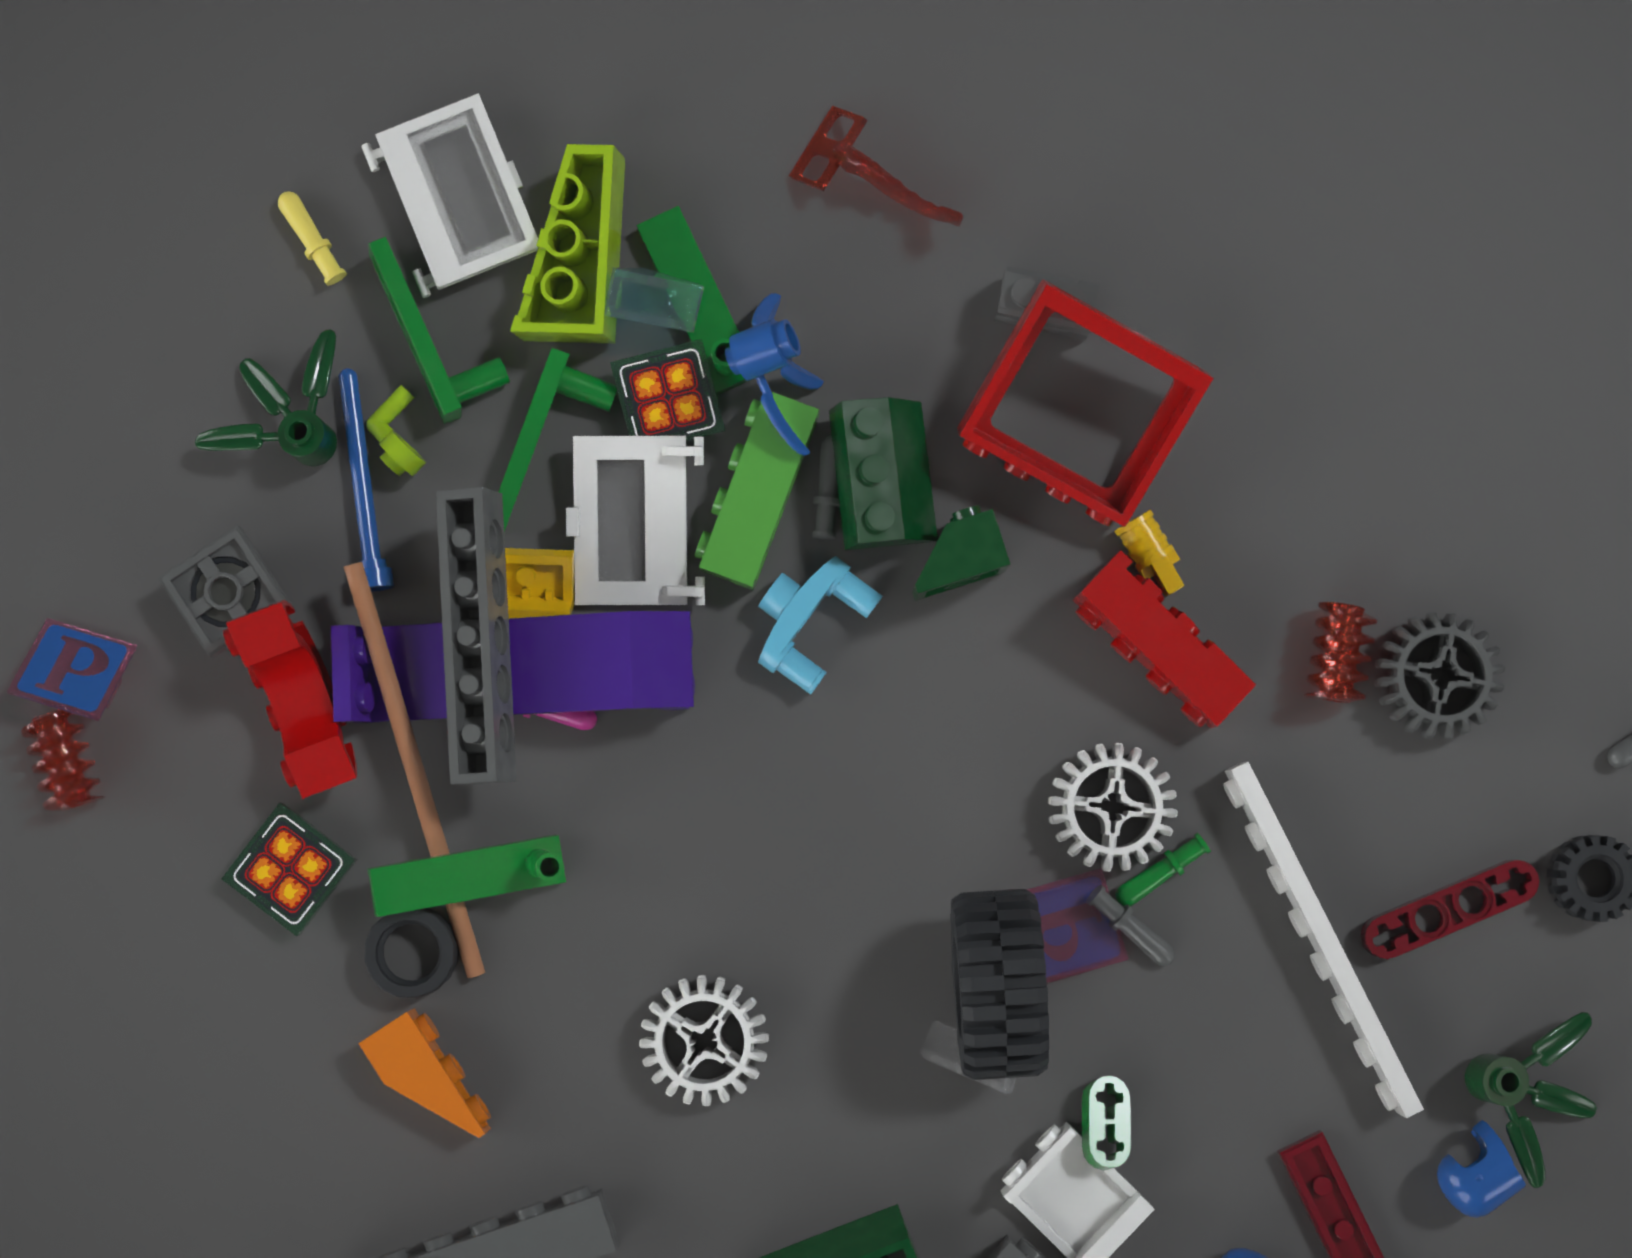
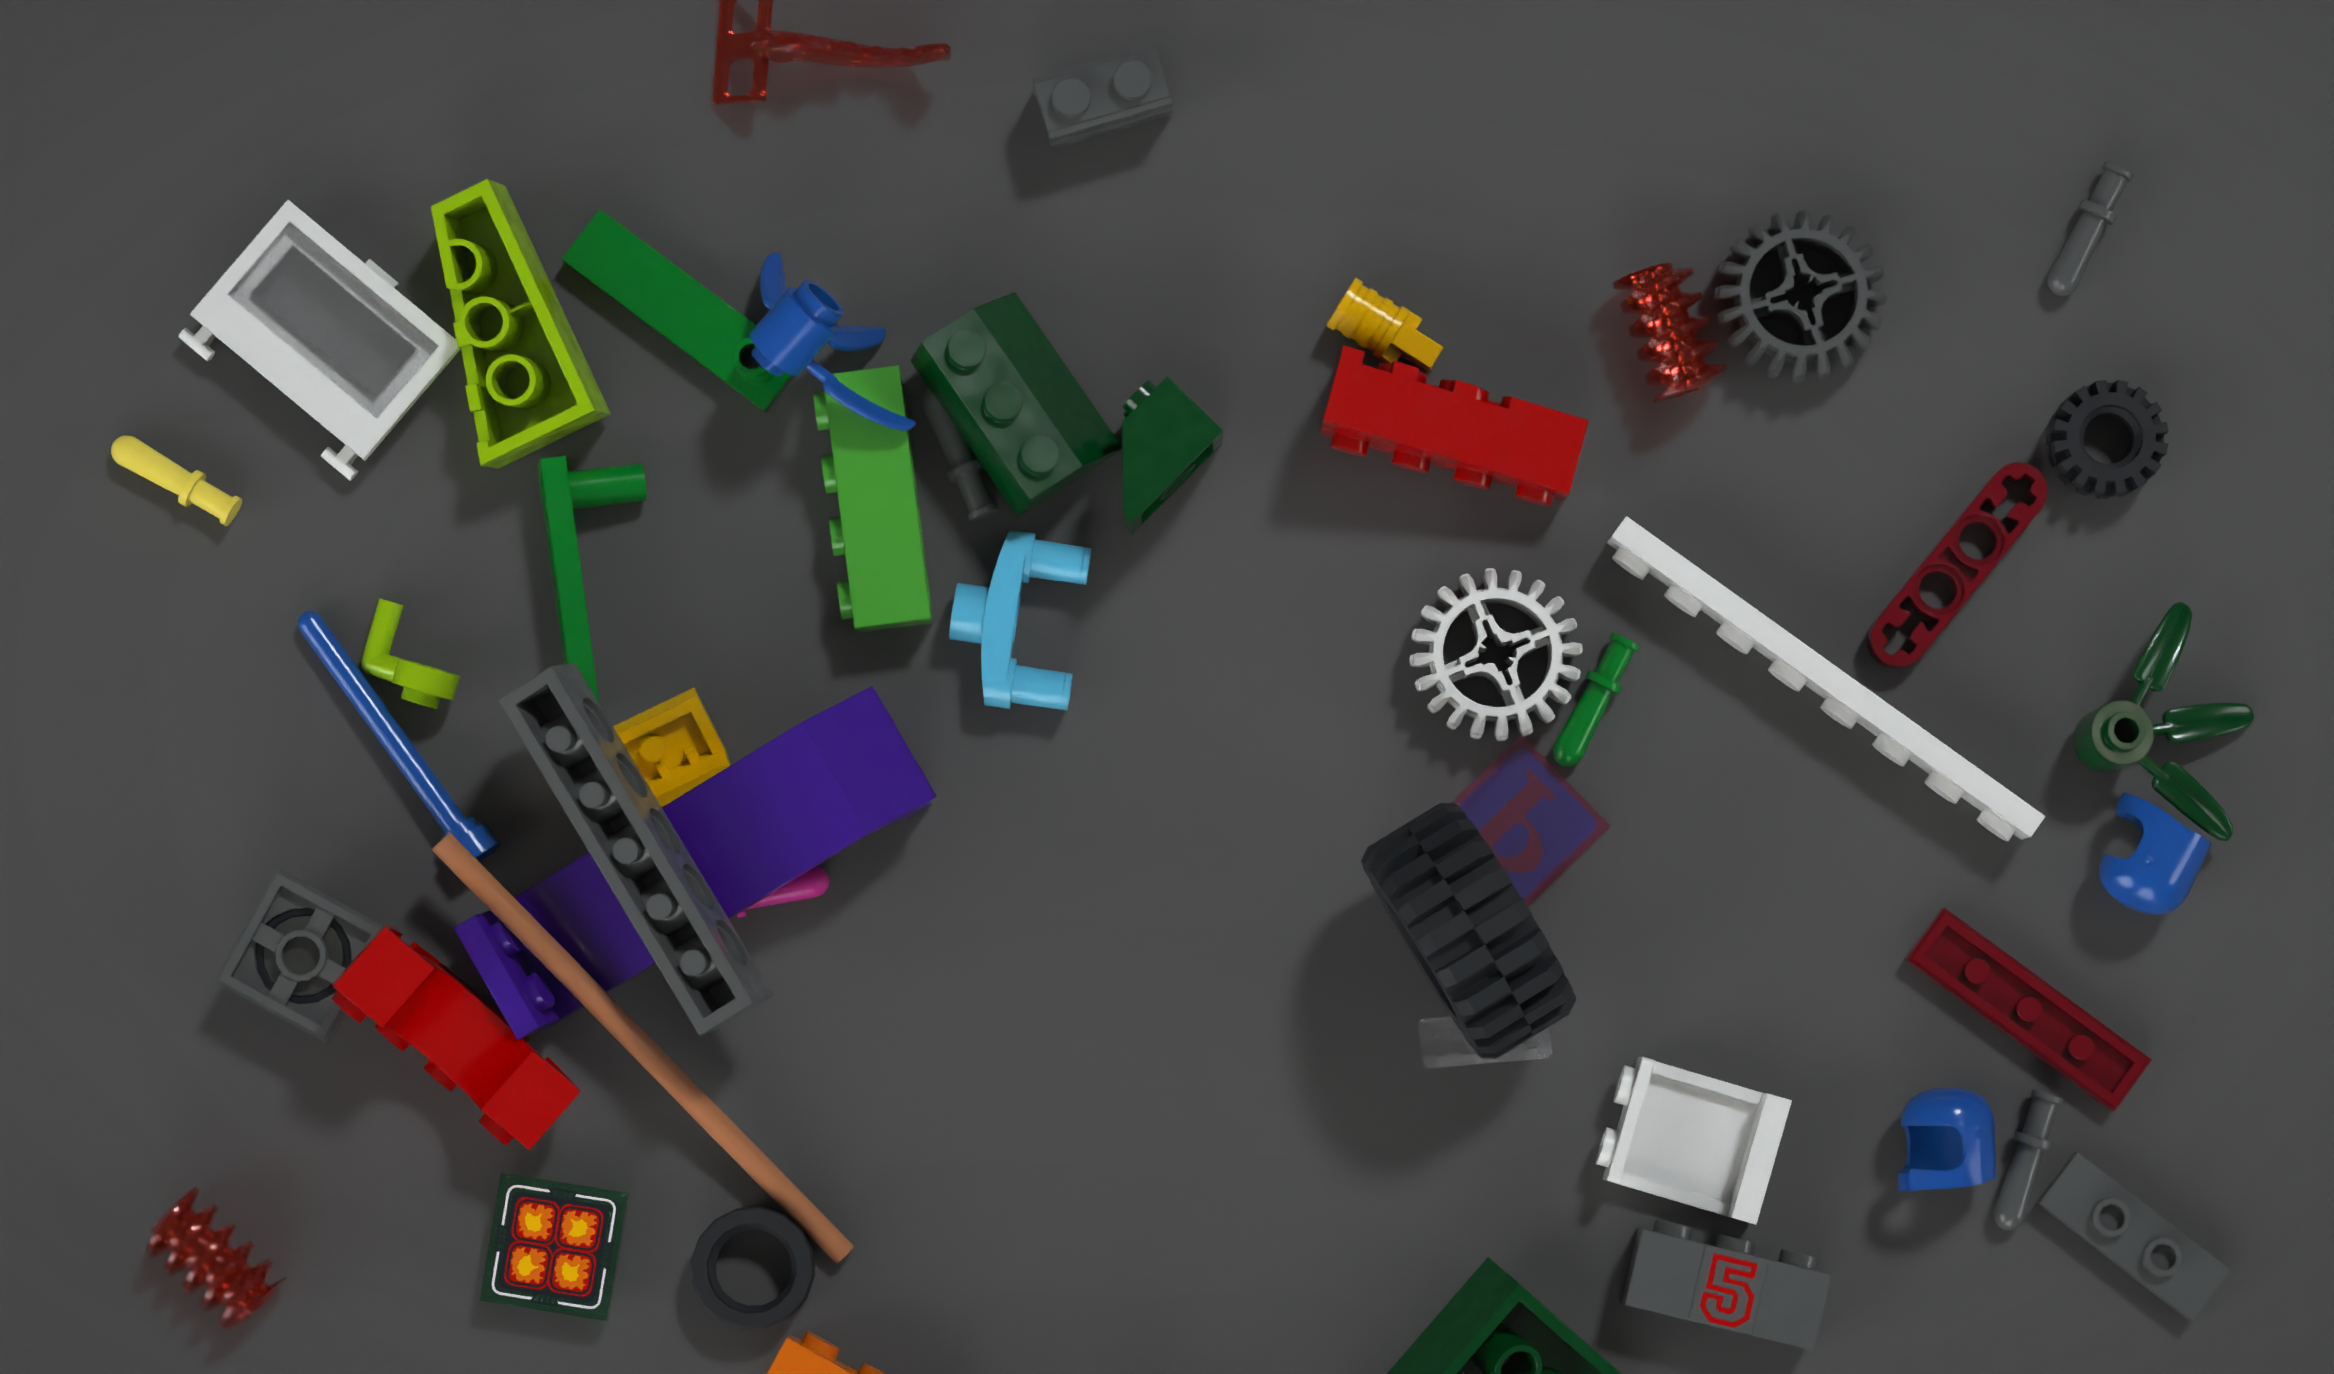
camera: 30 degrees left, 0 degrees up
(72, 669) = (167, 1145): piece -> none
(301, 431) = (321, 715): dark green plant -> none
(444, 390) = (437, 578): green piece -> none
(466, 875) = (772, 1139): green piece -> none
(632, 520) = (744, 614): white piece -> none
(653, 298) = (631, 336): clear light blue slope -> none
(669, 392) = (709, 444): tile -> none
(681, 1075) = (1201, 1190): white gear -> none
(1117, 1123) = (1696, 1024): beam -> none
(1121, 918) = (1575, 781): dark grey piece -> none
(1124, 495) = (1315, 279): red piece -> none

